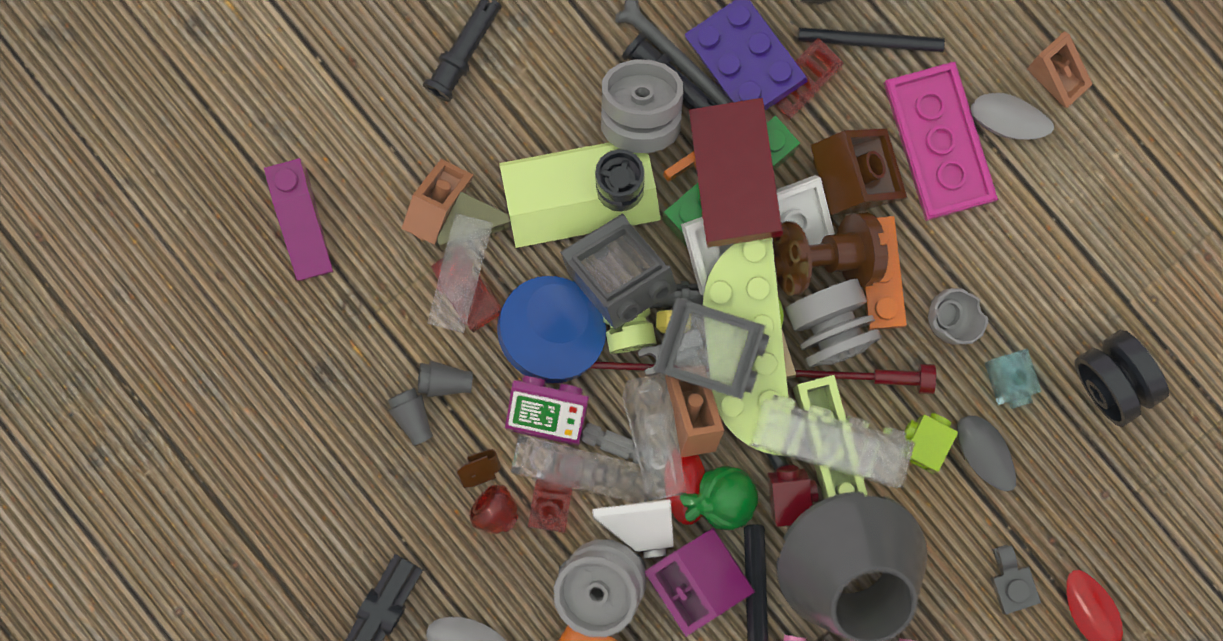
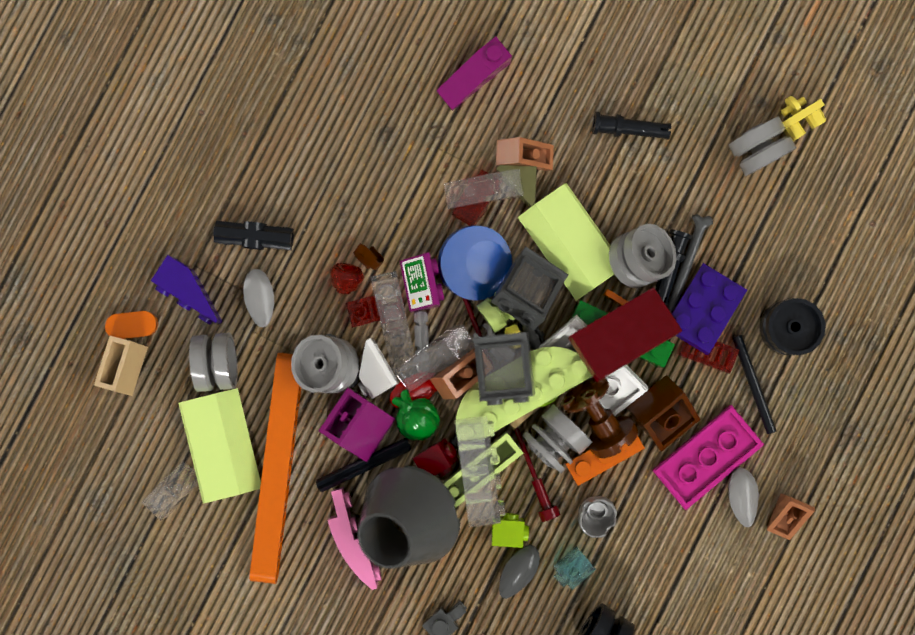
camera: 70 degrees right, 5 degrees up
(410, 414) = (383, 199): dark grey cone -> none
(441, 379) = (413, 208): dark grey cone -> none
(619, 180) = (587, 263): black wheel -> none

